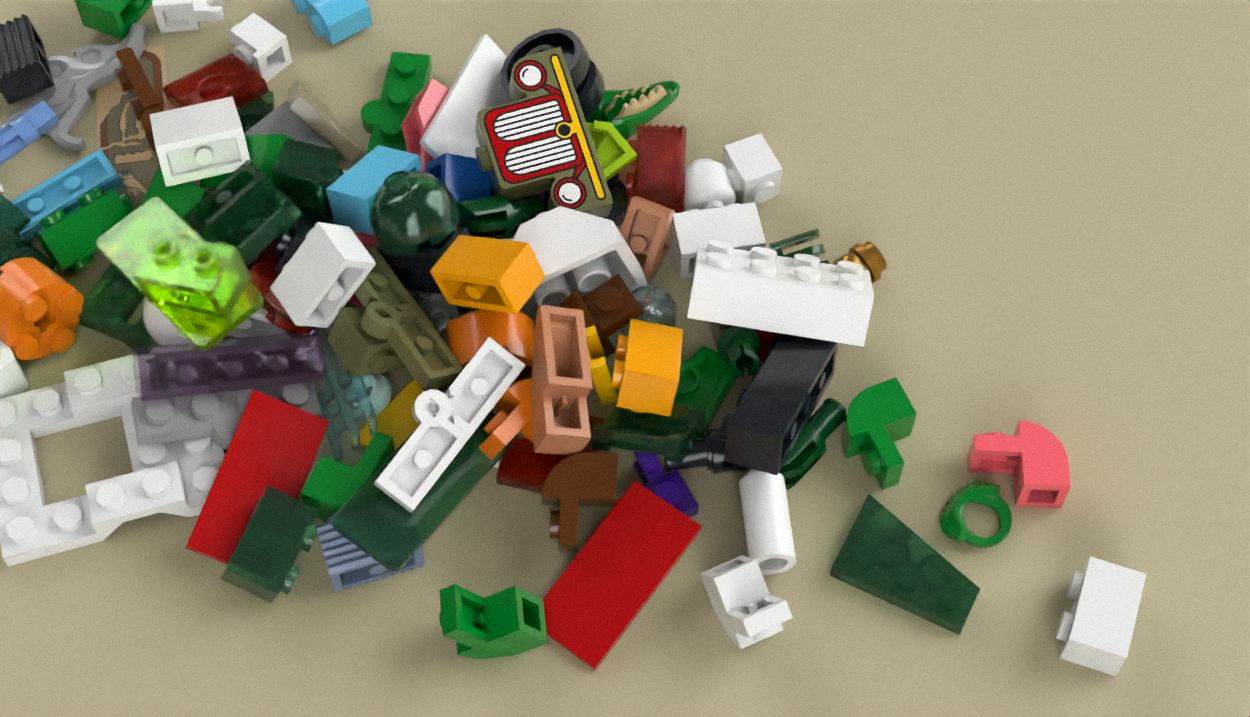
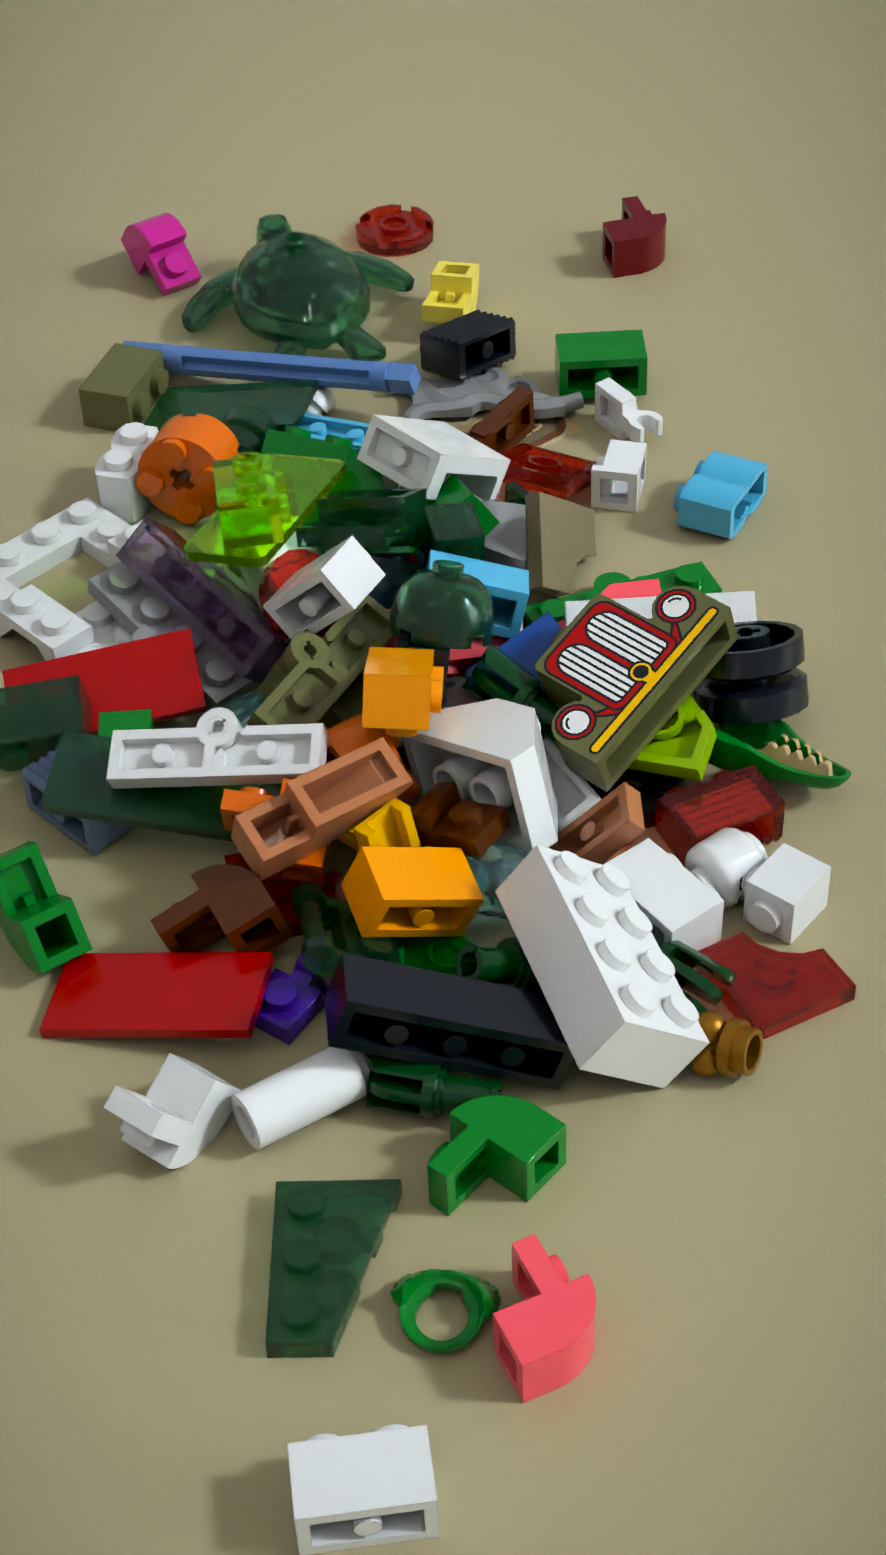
camera: 65 degrees right, 15 degrees down
(822, 206) = (778, 987): none -> clear red tile

